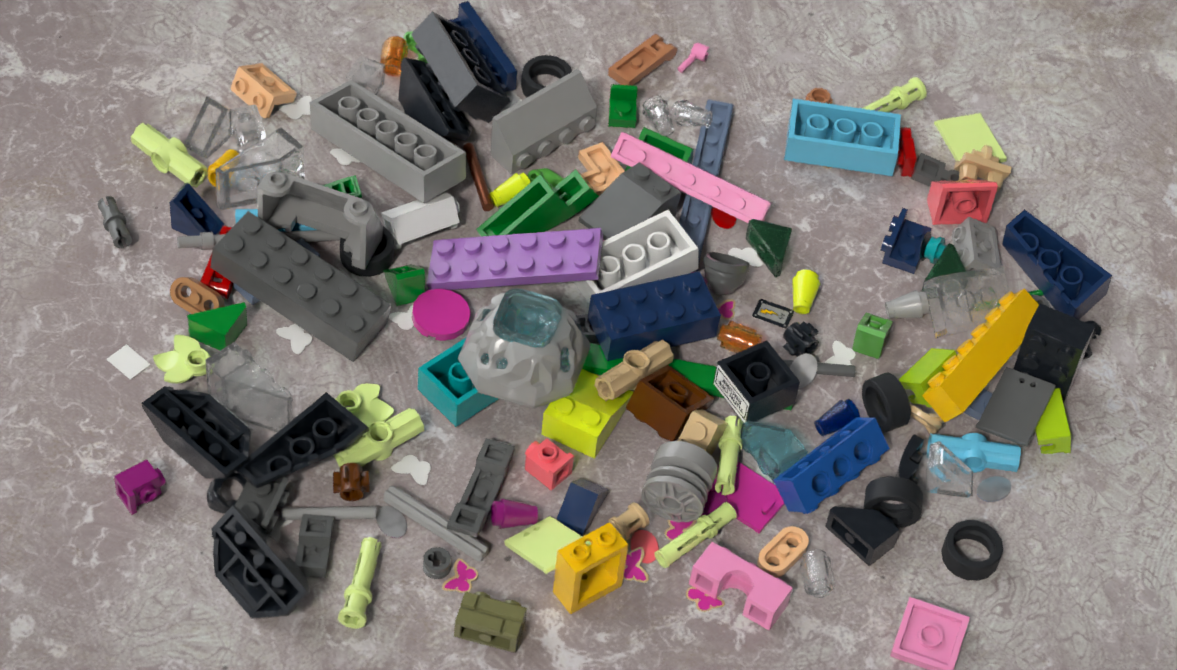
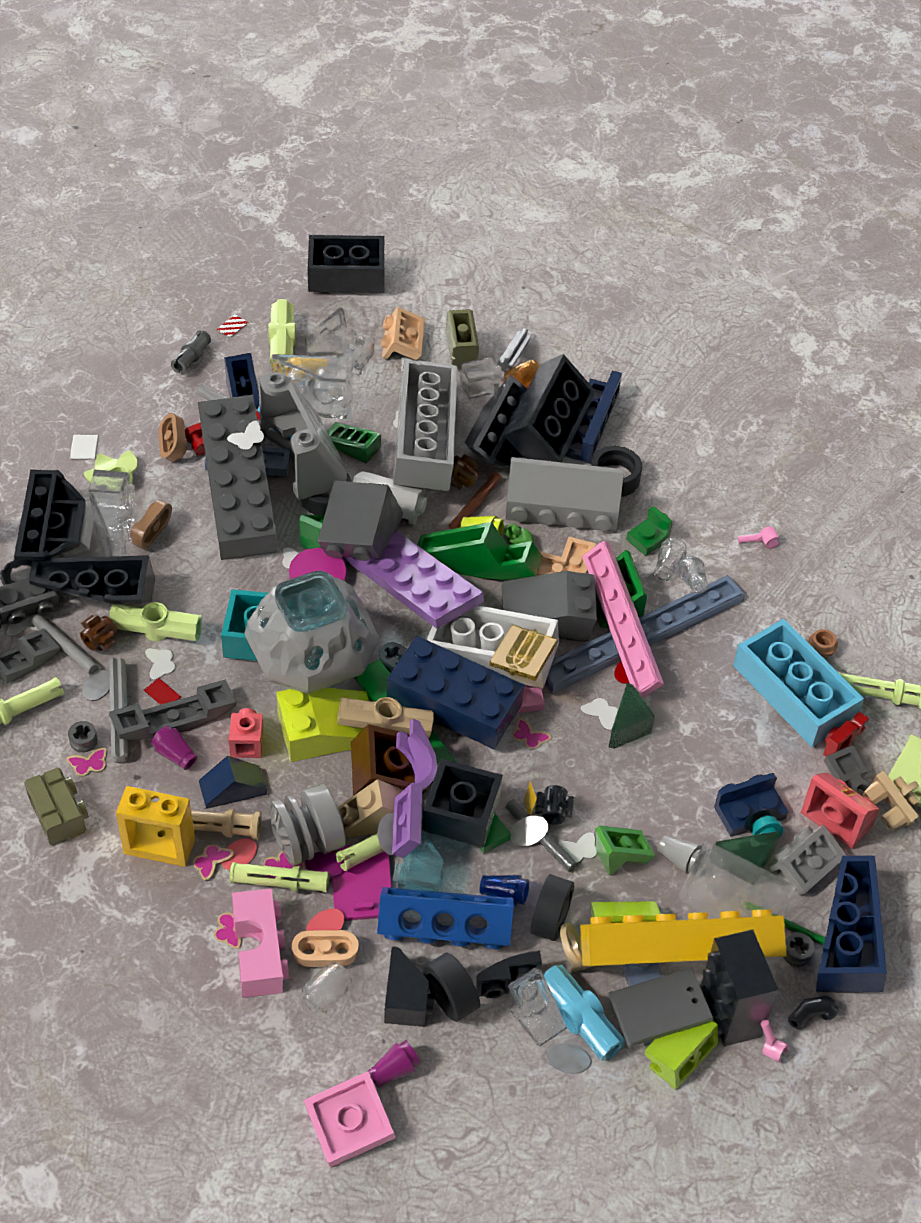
camera: 50 degrees right, 0 degrees up
(111, 179) = (232, 325): none -> sticker
(148, 60) = (346, 263): none -> black brick
(218, 326) = (163, 466): green slope -> none
(271, 361) = (151, 525): none -> medium nougat plate
(288, 246) = (251, 435): none -> white sticker
(297, 336) = (207, 514): white sticker -> none
(318, 57) = (461, 336): none -> olive brick
(364, 38) = (514, 350): none -> axle
(365, 403) = (181, 591): yellowish green plate -> none
(443, 247) = (359, 520): none -> dark grey slope
(445, 488) = (161, 692): none -> red sticker
(541, 541) = (165, 780): yellowish green container -> none
(642, 60) = (712, 510): nougat plate -> none
(676, 248) = (523, 652): none -> piece
(724, 272) = (560, 705): dark grey hat -> none
(727, 405) = (409, 802): none -> medium lavender piece
(734, 442) = (385, 833): none -> flat silver sticker
(737, 337) = (507, 761): clear orange brick -> none
(757, 538) = (326, 920): none -> coral sticker
(773, 313) = (569, 771): sticker -> none
(783, 346) = (530, 798): none -> yellow sticker
(805, 288) = (612, 772): neon yellow cone -> none
(914, 577) = (396, 1063): none -> magenta cone
(966, 568) = (471, 1110): black tyre -> none
(1094, 377) = (773, 1047): none -> bright pink hand

